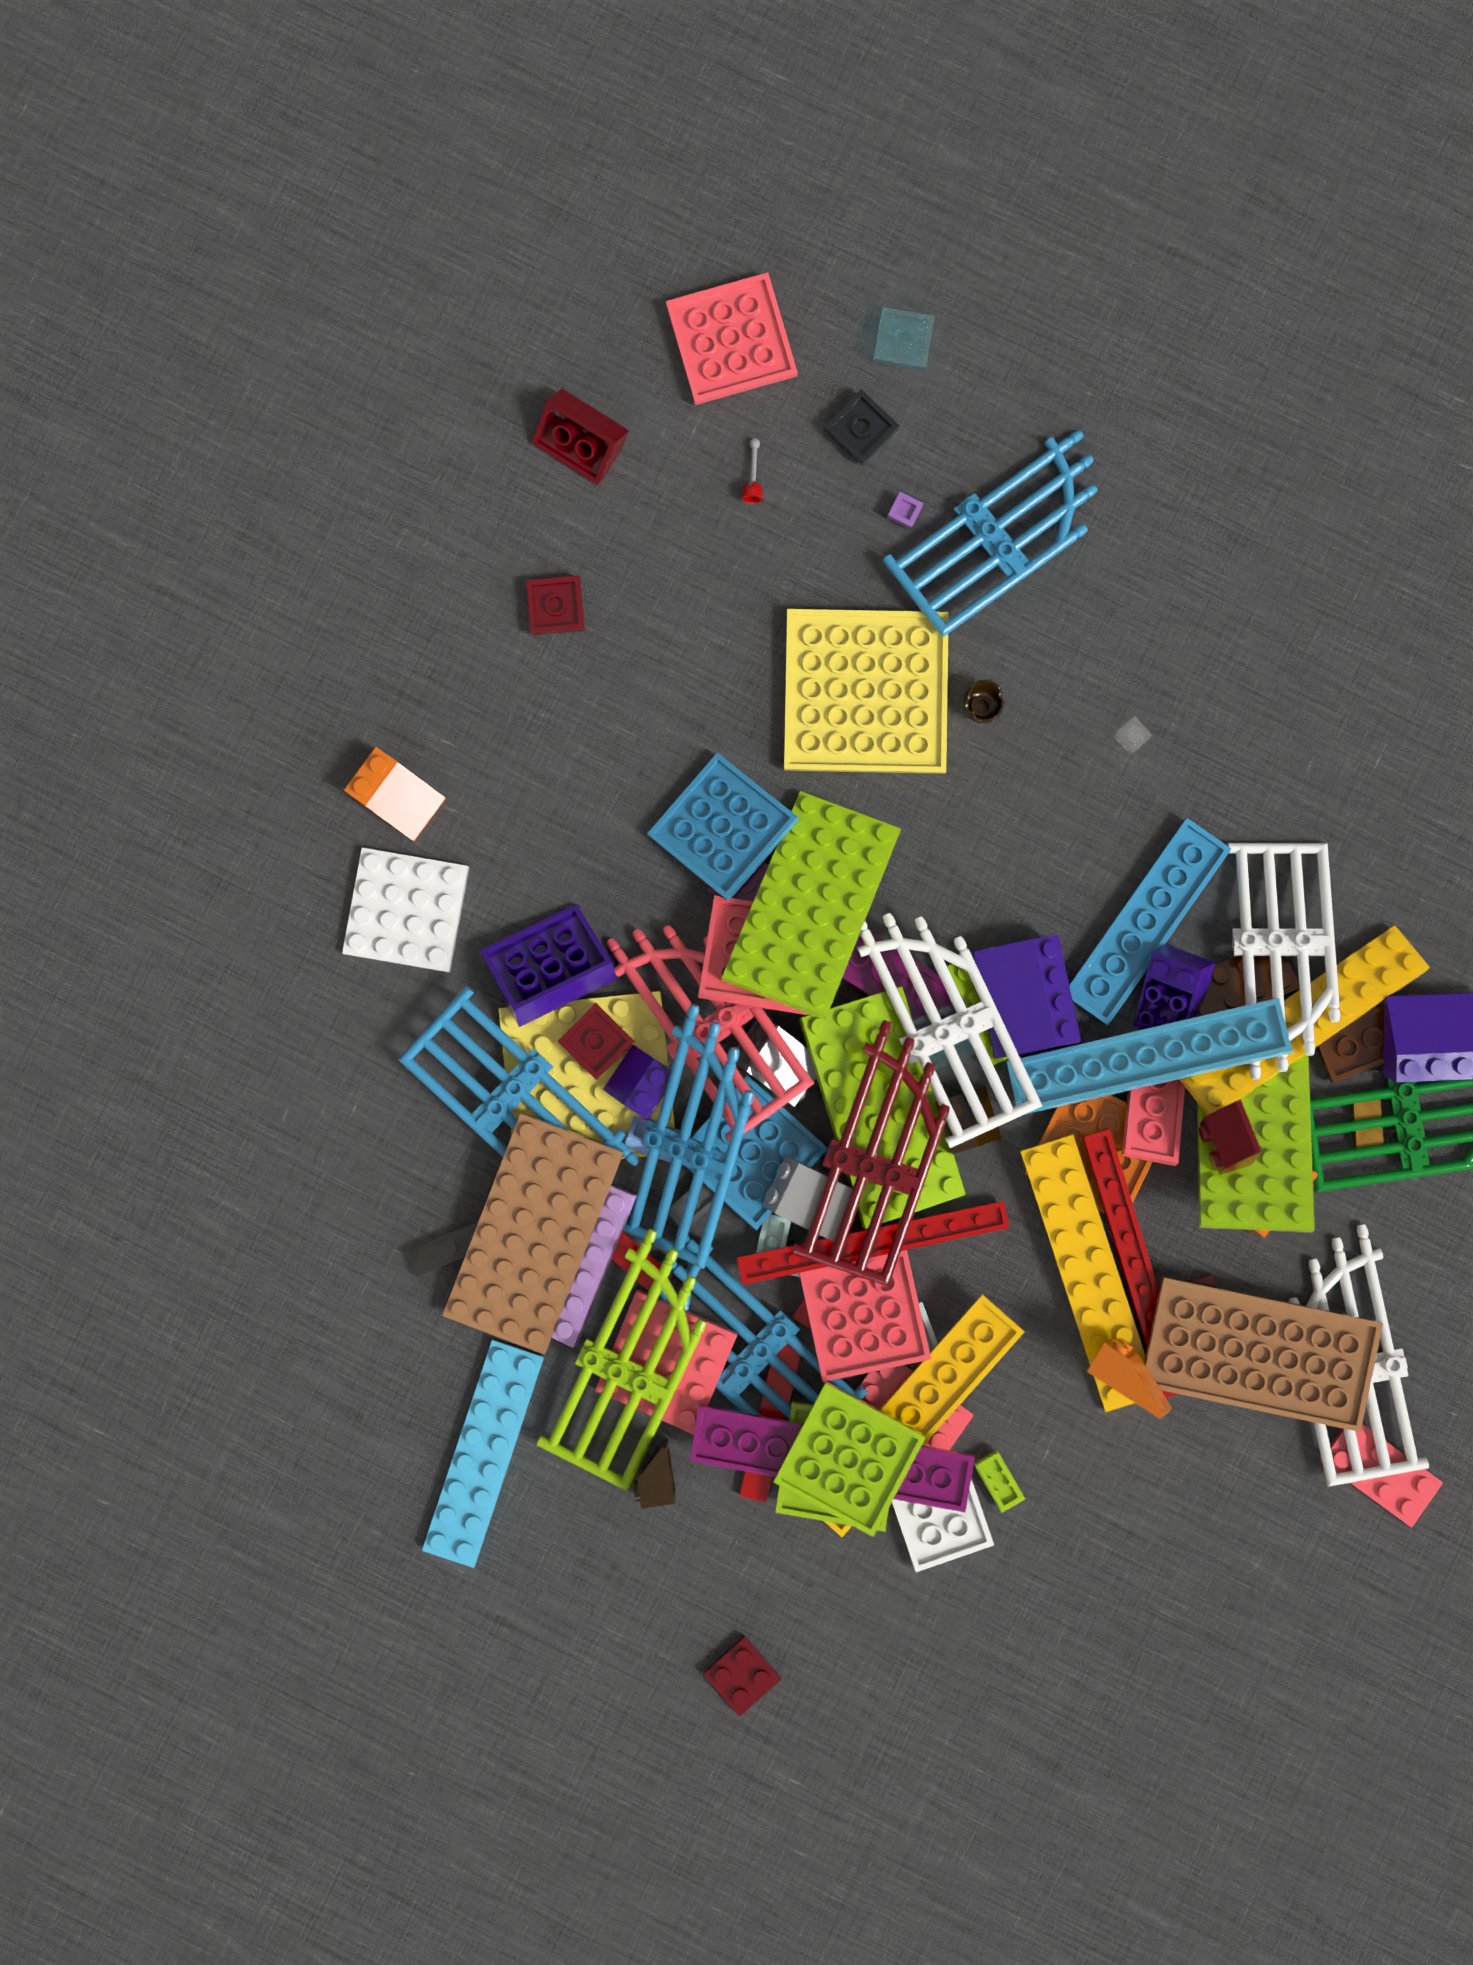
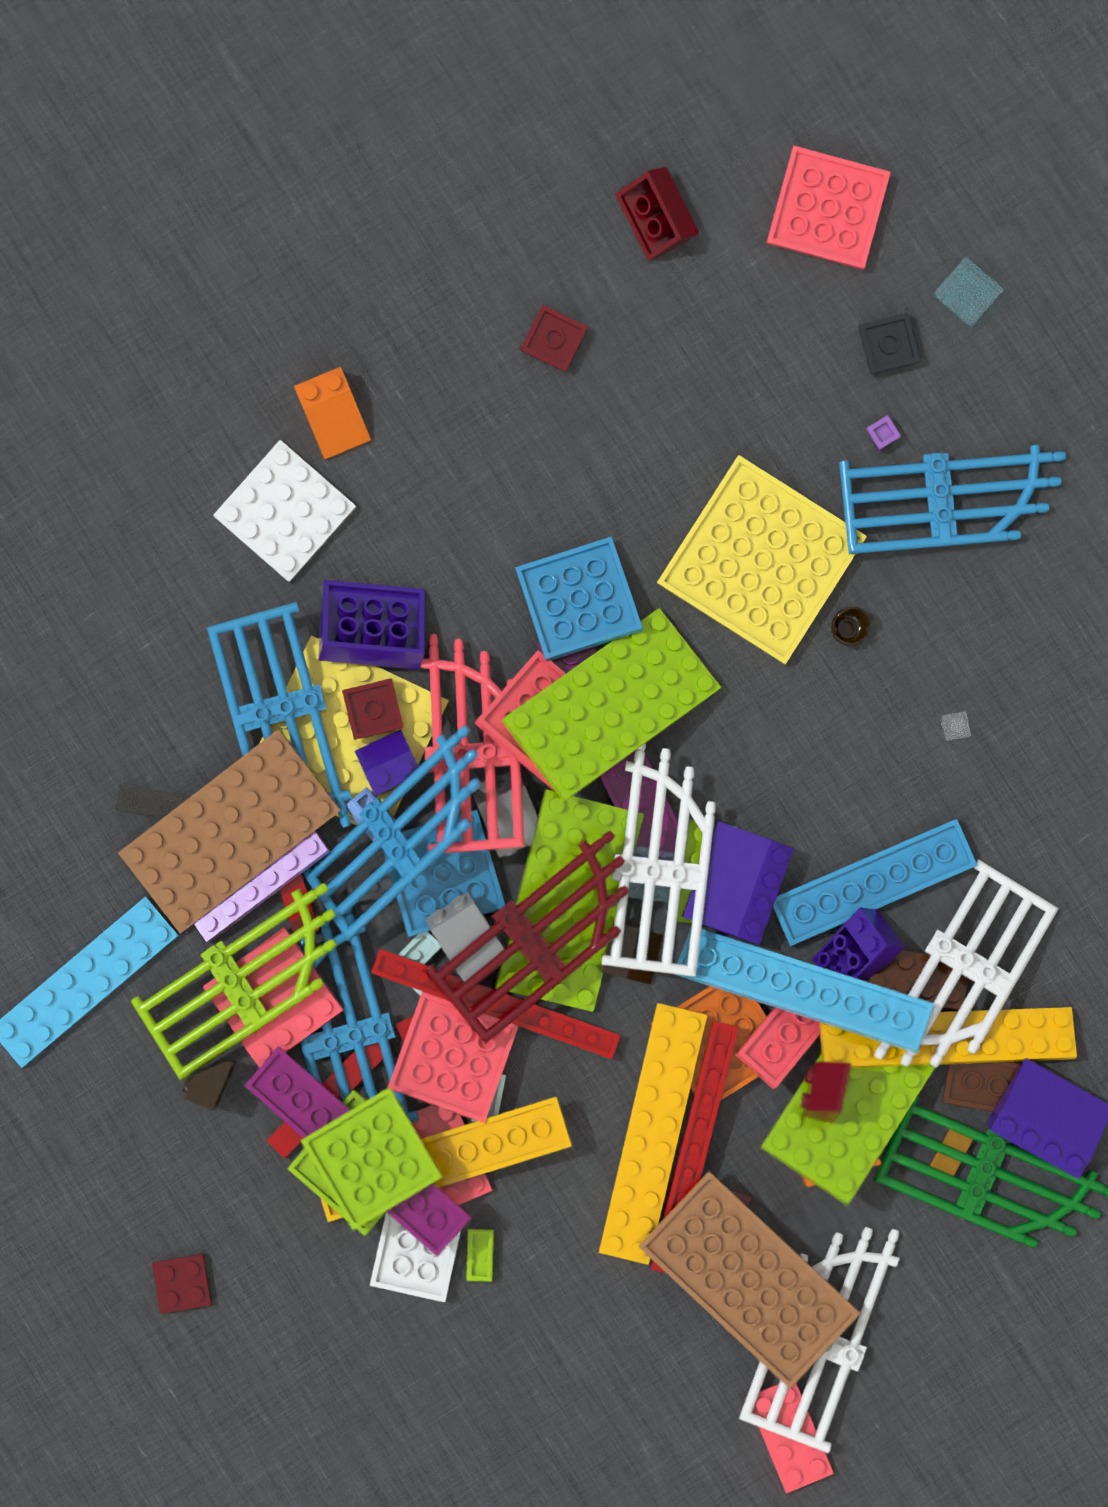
camera: 25 degrees right, 0 degrees up
(752, 491) = (769, 341): hinge -> none
(1127, 1374) = (632, 1226): orange slope -> none

